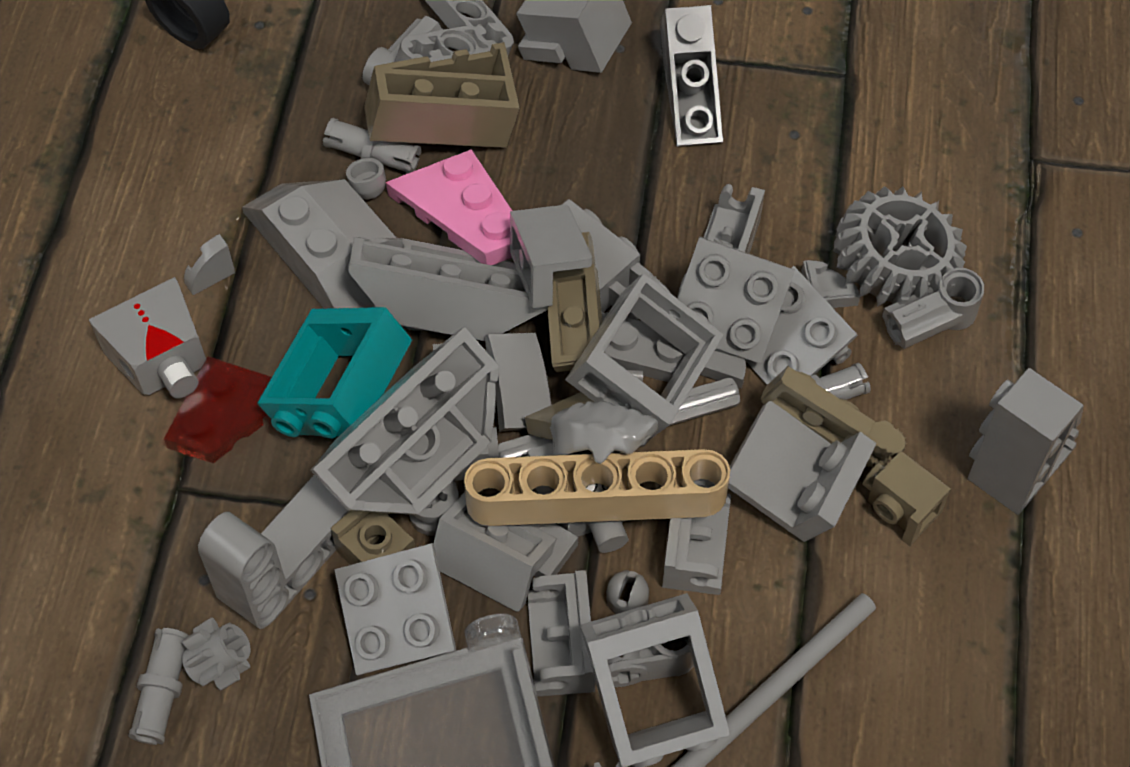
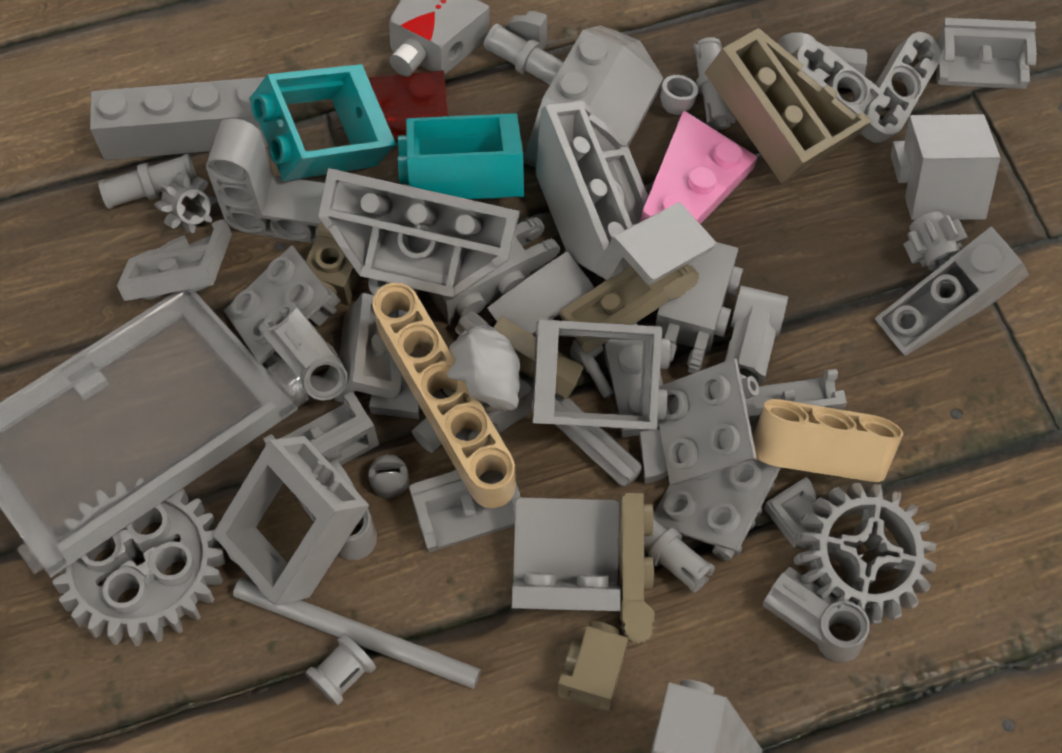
camera: 65 degrees right, 5 degrees up
(110, 613) = (167, 117): none -> light grey brick
(197, 446) = (350, 92): none -> teal window
(241, 279) = (524, 54): none -> light grey pin
(286, 693) = (176, 266): none -> light grey wing
(473, 595) = (304, 351): none -> light grey piece
(637, 63) = (934, 239): none -> light grey gear
(655, 238) = (755, 325): none -> light grey piece
(790, 219) = (825, 440): none -> tan beam
(811, 711) = (340, 669): none -> light grey bush

